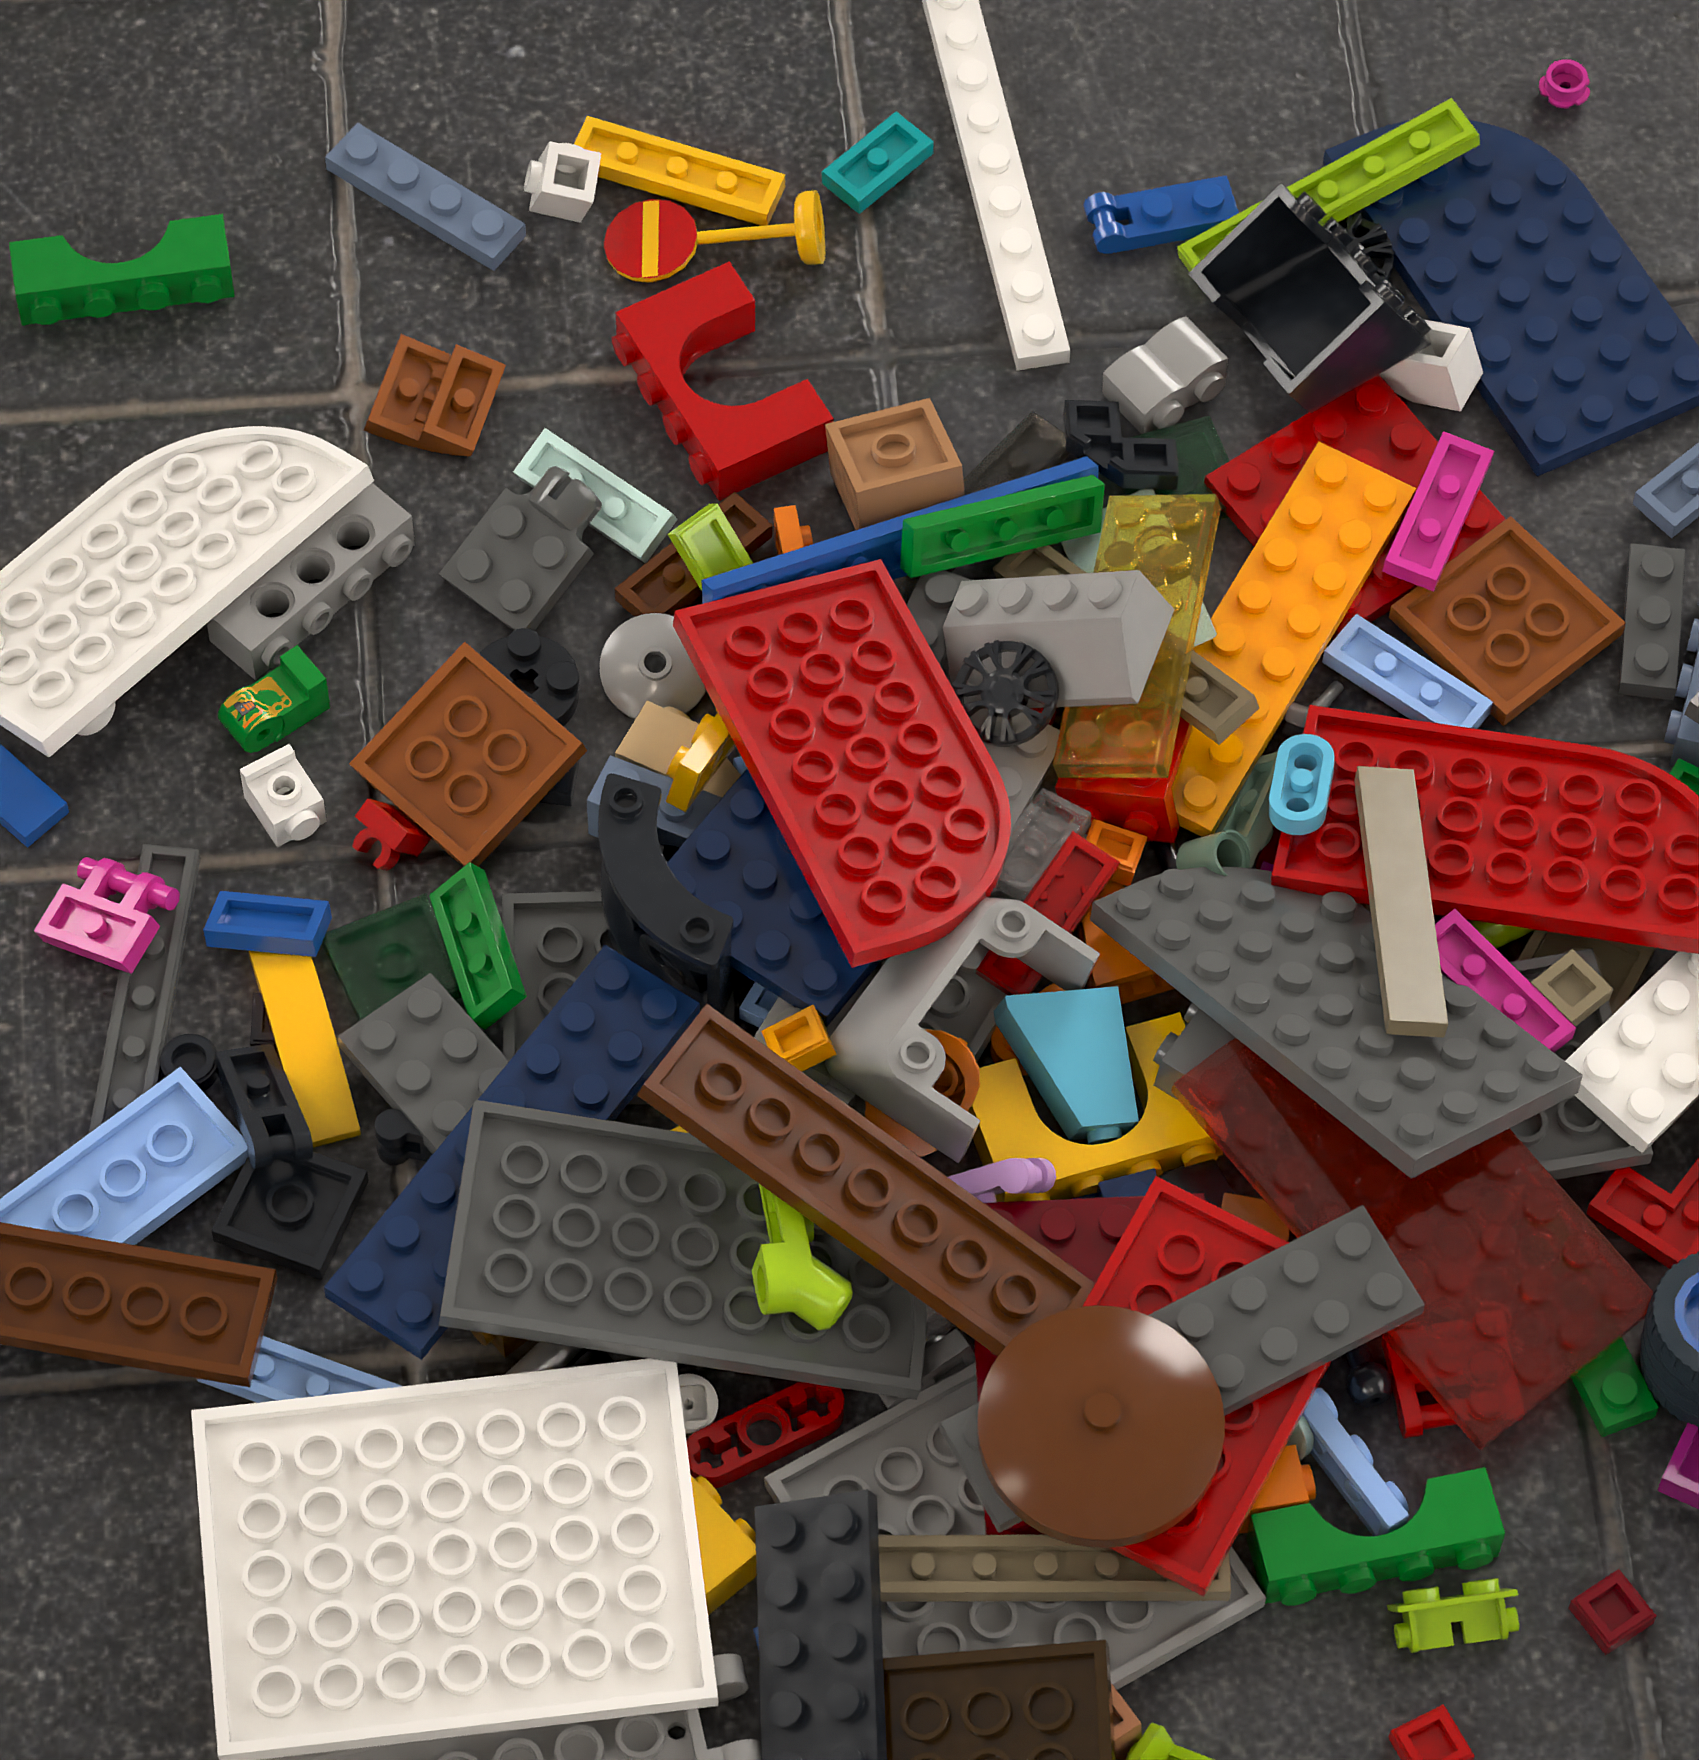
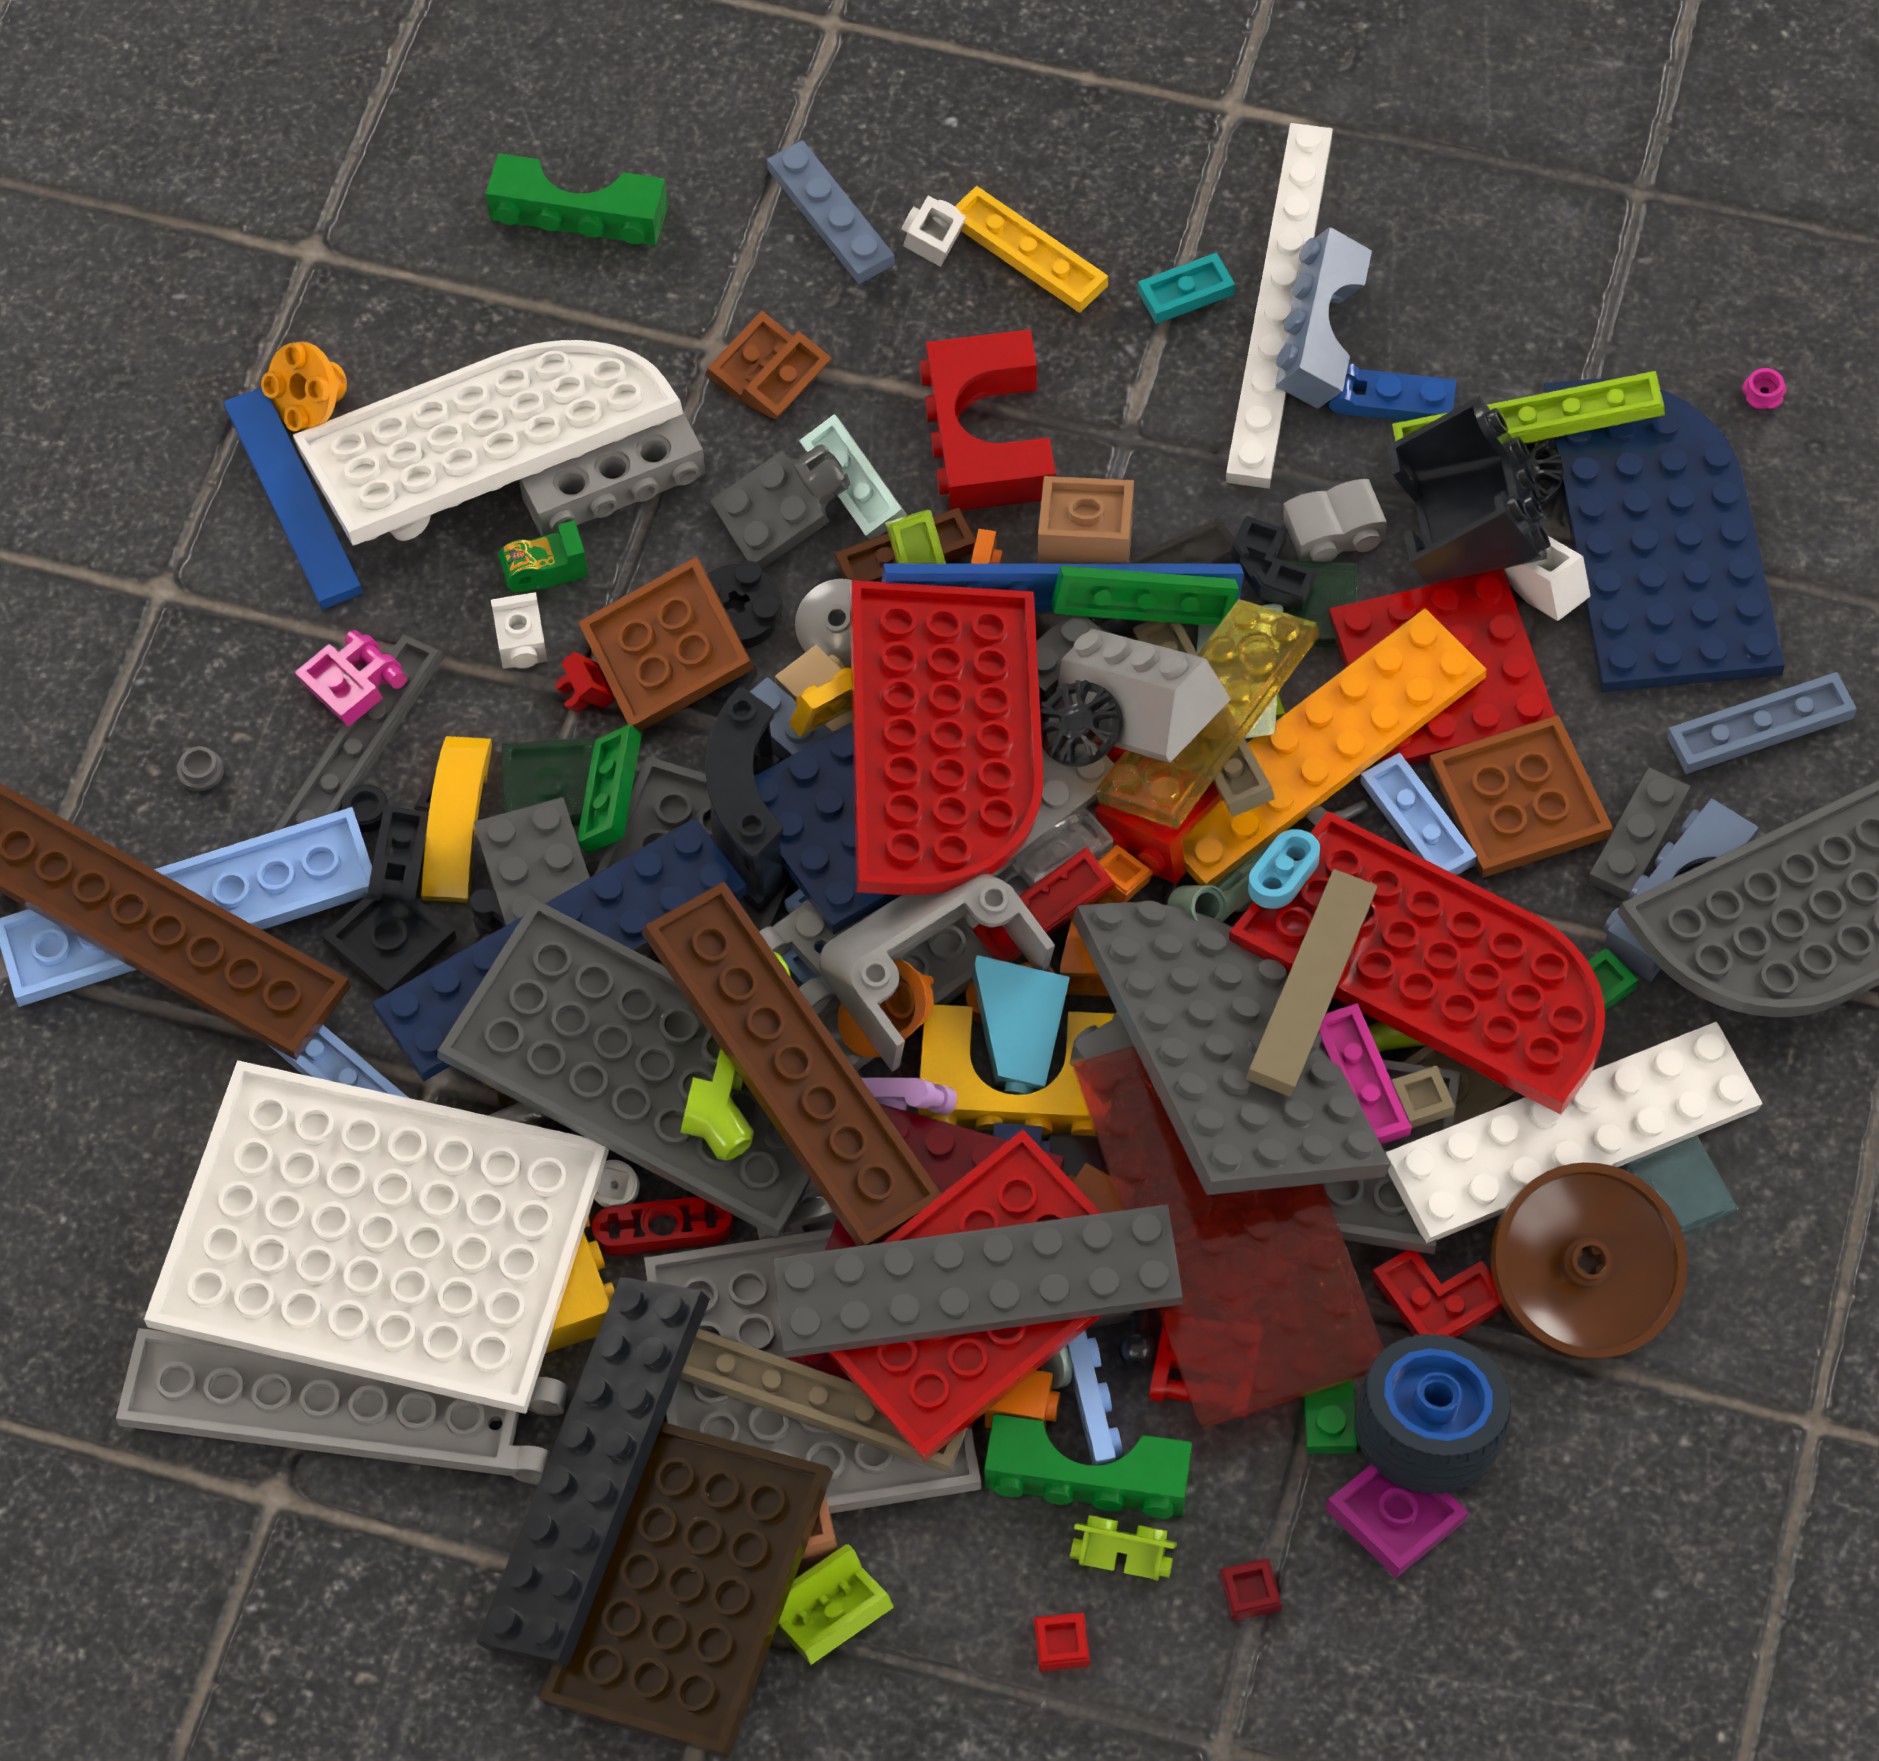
camera: 25 degrees right, 0 degrees up
(267, 923) = (465, 722): blue tile -> none
(660, 237) = (995, 294): piece -> none
(800, 1039) = (802, 937): light orange tile -> none
(1058, 198) = (1312, 359): none -> arch
(1100, 1426) = (887, 1302): reddish brown dish -> none
(1438, 511) = (1497, 692): dark pink plate -> none

